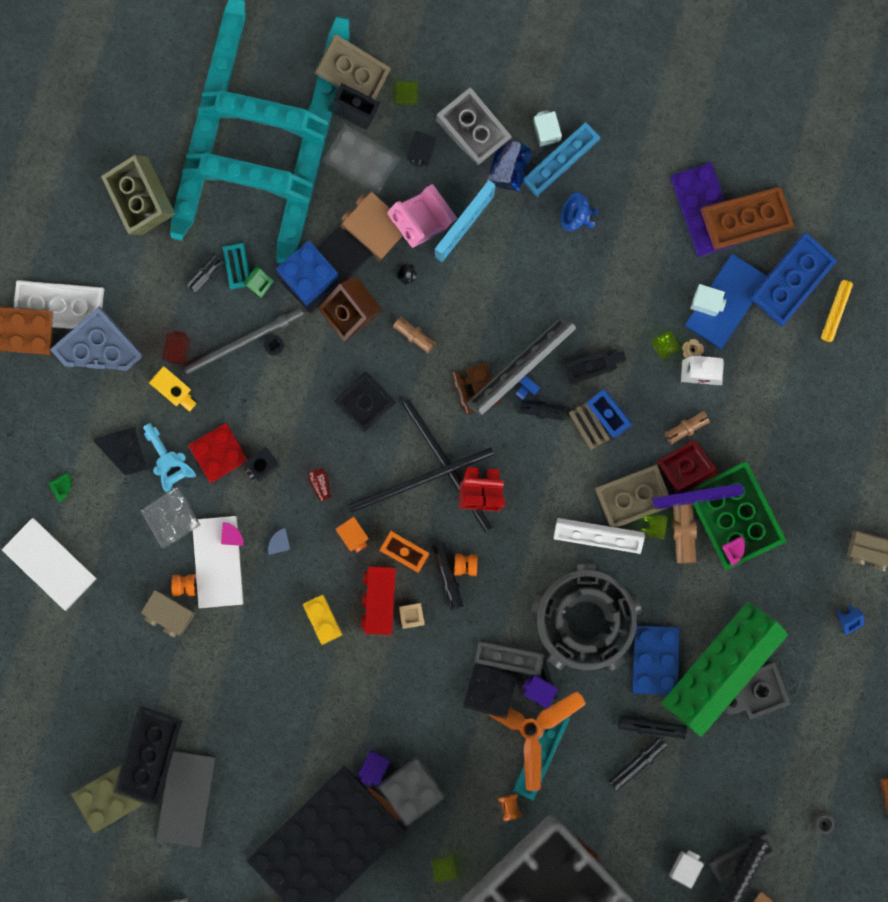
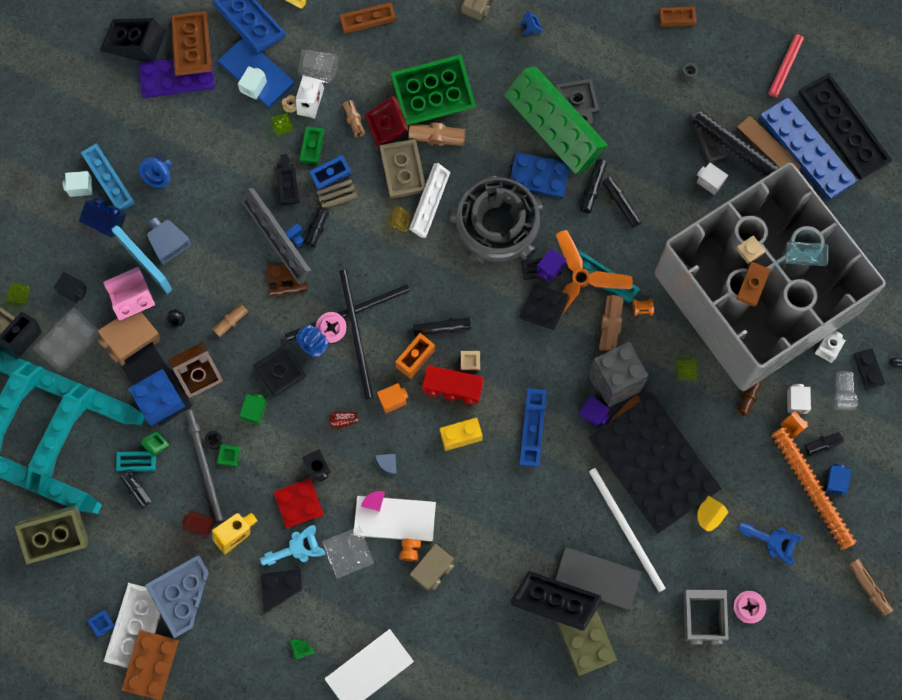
camera: 80 degrees left, 10 degrees down
(56, 268) = (101, 623): none -> blue tile
(246, 824) = (627, 530): none -> white piece
(259, 365) = (229, 455): none -> green tile
(315, 382) = (253, 408): none -> green brick
(343, 700) = (533, 427): none -> blue slope
(402, 432) = (312, 340): none -> blue gear
(415, 450) = (340, 327): none -> bright pink gear
(460, 564) = (434, 309): orange wheel -> none
(473, 126) = (62, 240): light grey slope -> none
(481, 493) = (376, 286): red hips -> none
(482, 772) = (611, 323): none -> medium nougat piece
(496, 242) = (166, 239): none -> sand blue torso
(509, 658) = (519, 287): dark grey tile -> none
(569, 505) = (400, 219): none -> clear yellow tile
(643, 385) = (312, 145): none -> green plate
(657, 526) = (430, 154): clear neon green tile -> none
(698, 496) = (412, 113): dark purple tile -> none
(735, 550) = (460, 95): dark pink tile -> none
(741, 150) = (134, 38): none -> black slope
(746, 373) = (318, 65): none -> clear brick
(821, 420) = (367, 18): none -> dark orange plate

